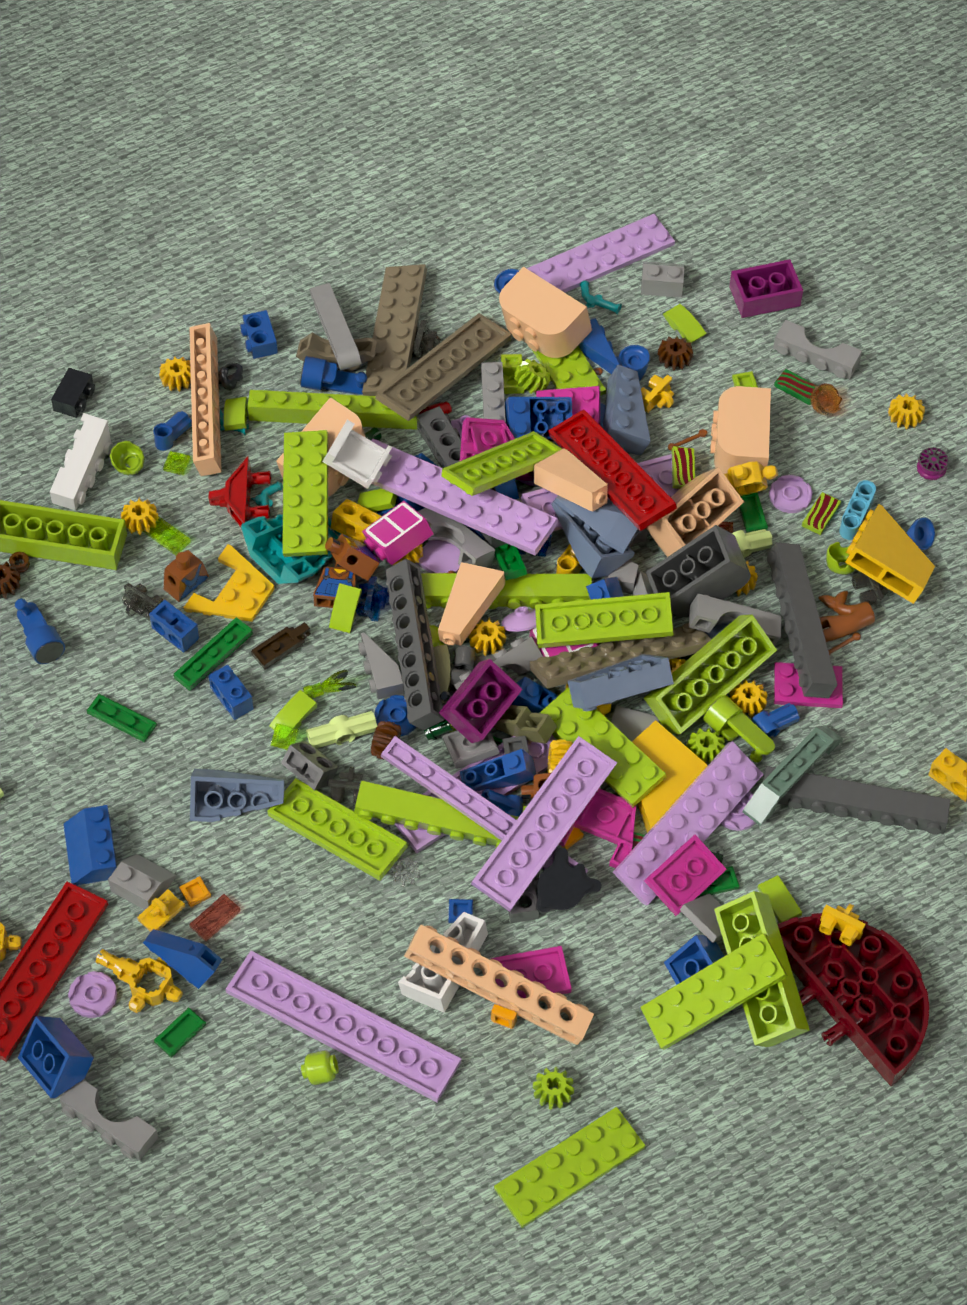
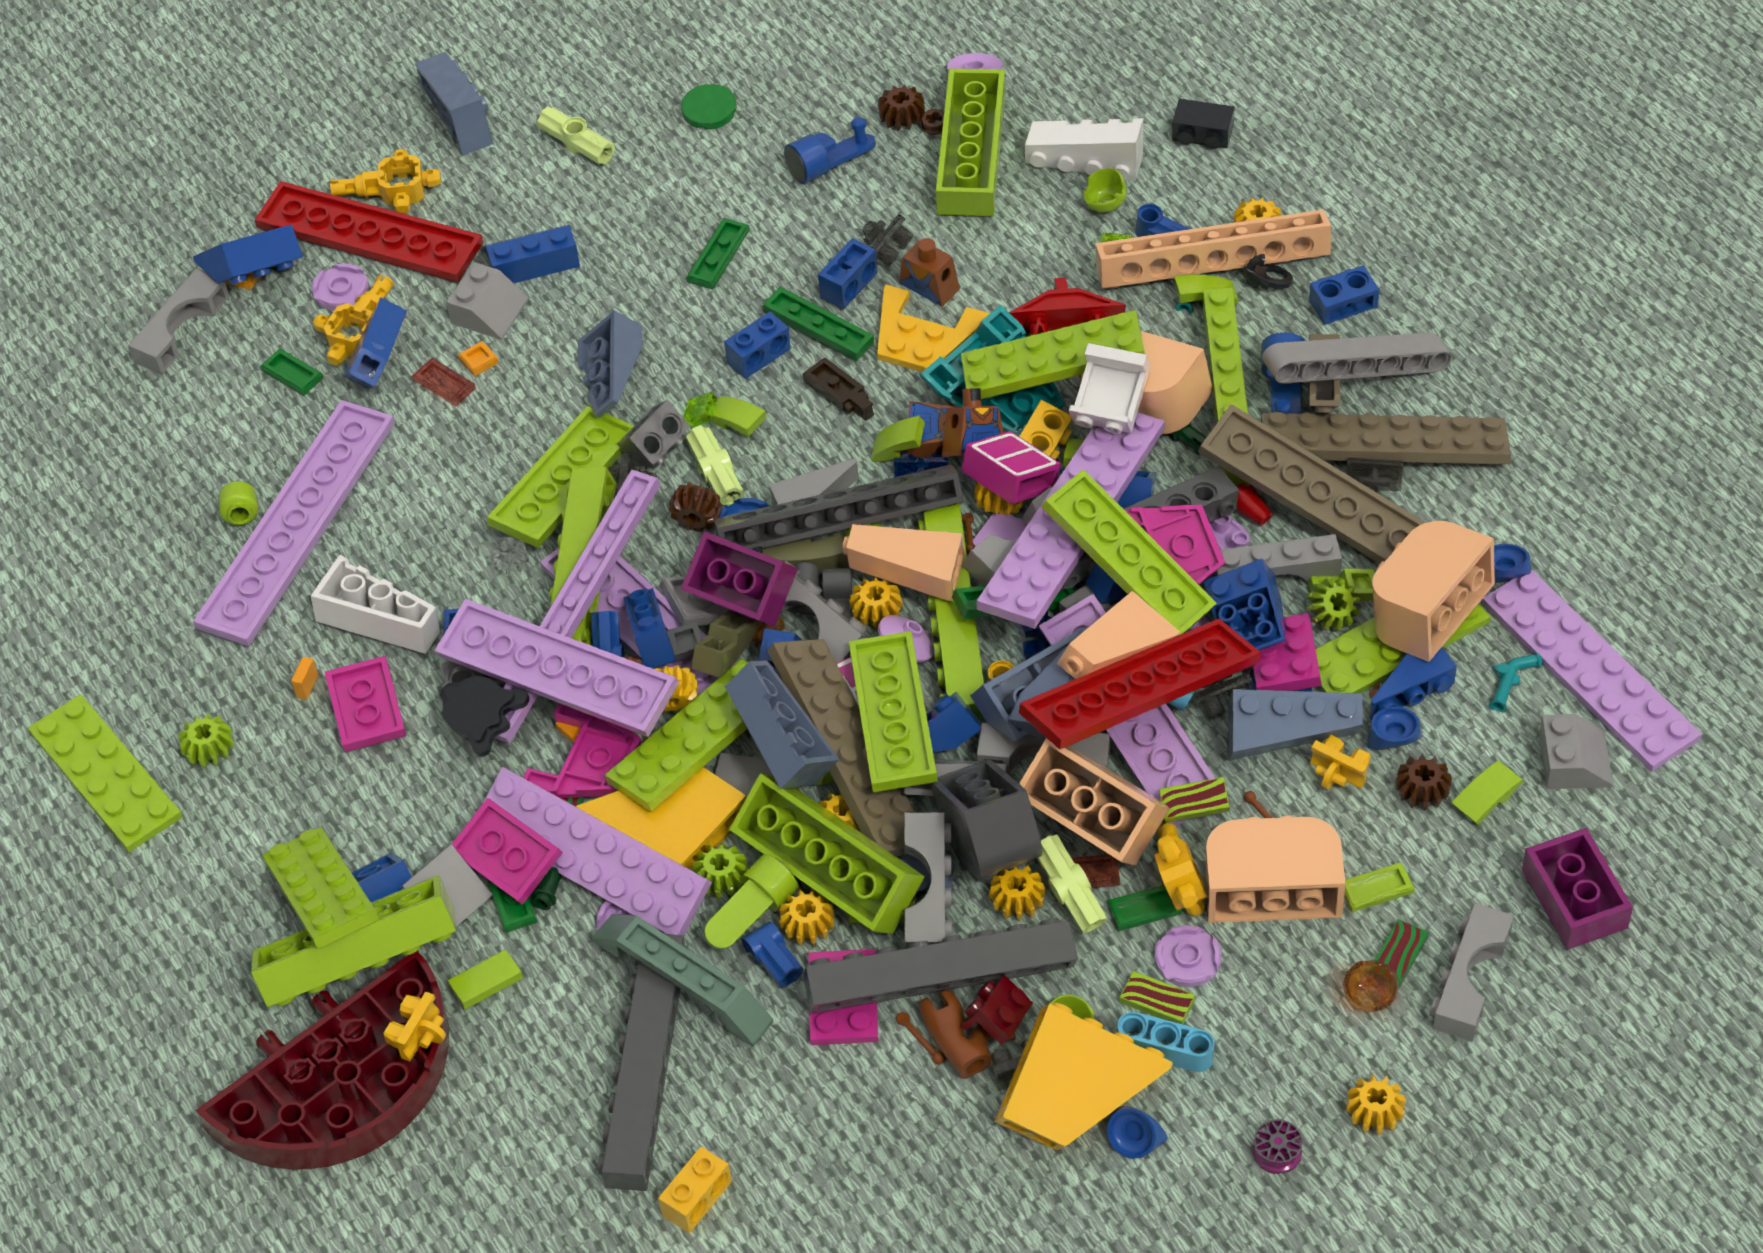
camera: 90 degrees right, 5 degrees down
(140, 516) = (1010, 213): yellow gear -> none
(161, 911) = (442, 324): yellow hips -> none
(168, 536) = (1005, 245): clear neon green tile -> none
(329, 685) = (778, 438): clear neon green piece -> none
(486, 987) = (325, 636): light nougat brick -> none
(834, 595) = (998, 1009): none -> dark red bracket

